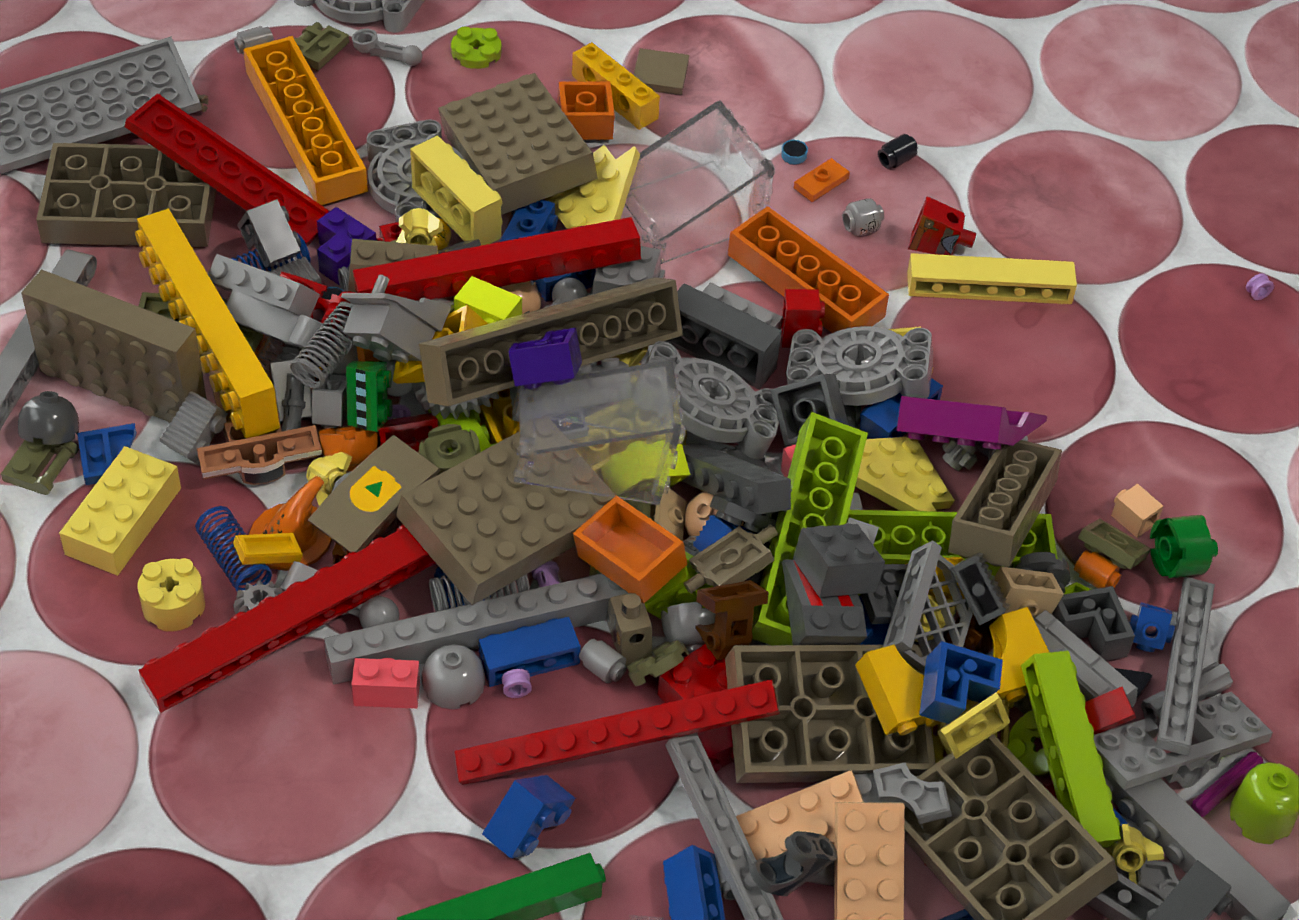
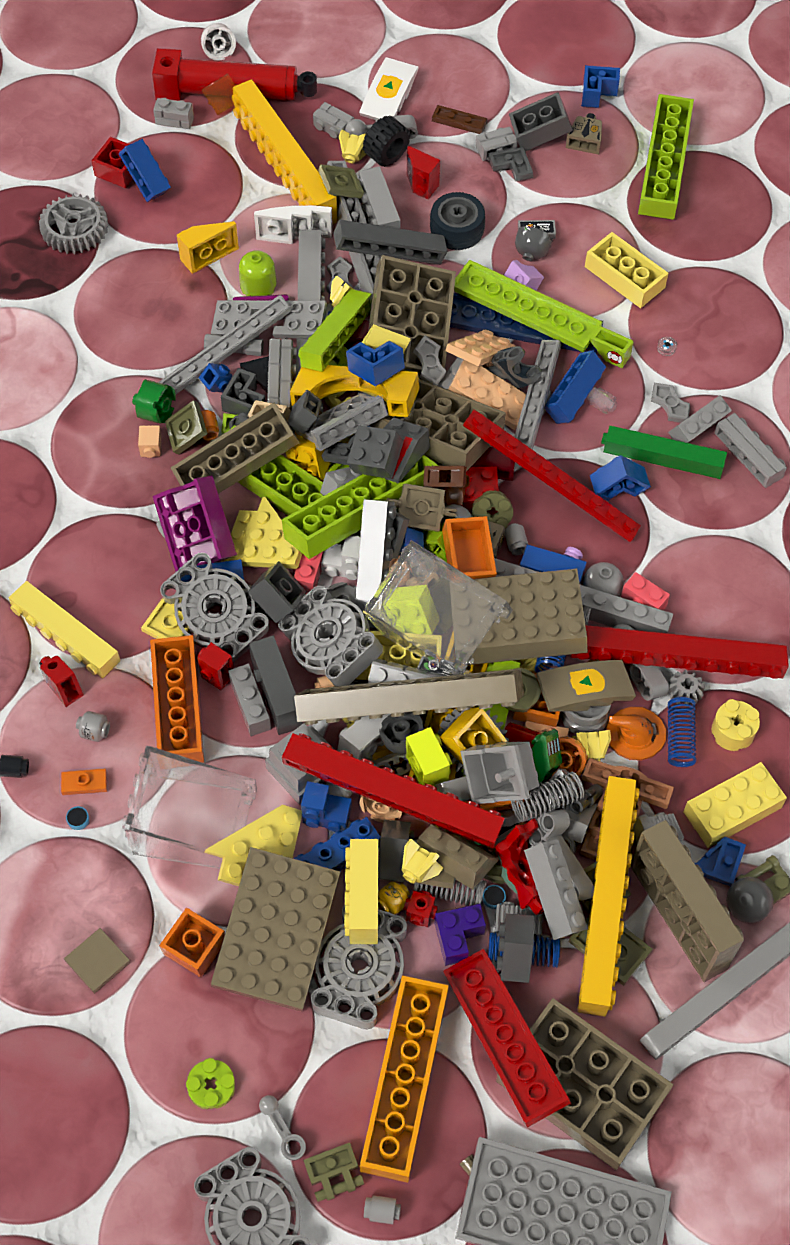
camera: 140 degrees left, 10 degrees up
(267, 548) = (665, 707): yellow tile -> none
(546, 360) = (439, 652): dark purple brick -> none
(629, 94) = (148, 959): yellow brick -> none
(1109, 710) = (295, 335): red tile -> none

